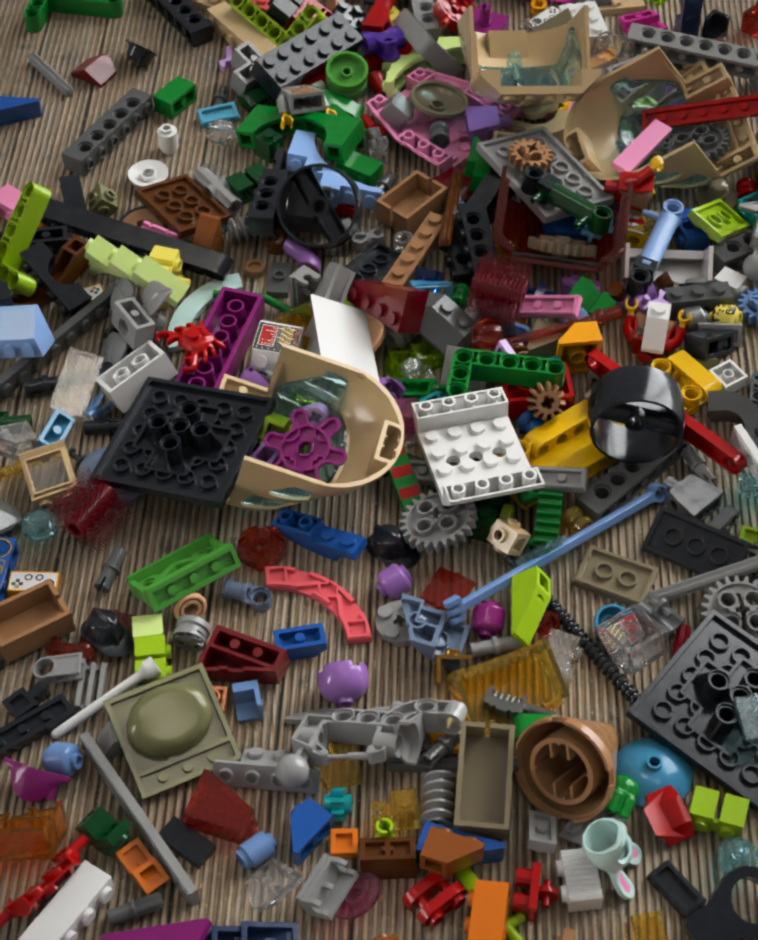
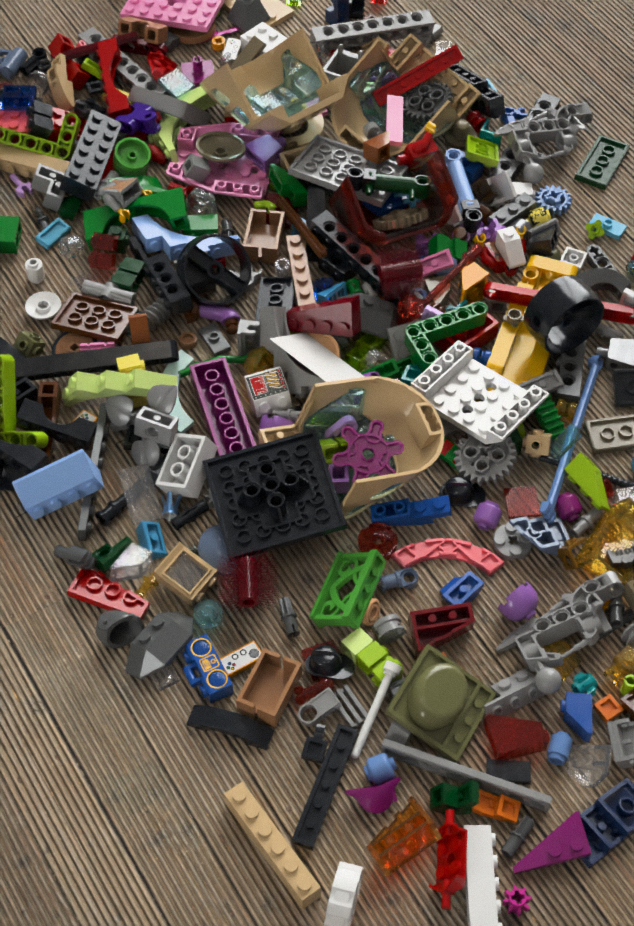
camera: 35 degrees left, 5 degrees up
(195, 341) = (211, 416): red animal -> none
(247, 701) = (465, 653): medium blue panel -> none
(248, 139) = (105, 242): none -> clear red piece
(439, 134) = (240, 173): dark grey wheel -> none
(440, 175) = (265, 204): none -> lime arm
(445, 22) = (176, 83): none -> clear light blue piece
(530, 154) = (335, 161): medium nougat gear -> none
(553, 403) = (487, 335): medium nougat gear -> none
(593, 163) = (377, 148): none -> dark orange slope
(602, 151) = (369, 132): none -> light grey wheel
(646, 17) = (299, 21): dark pink slope -> none
(684, 261) = (482, 191): none -> dark brown bracket

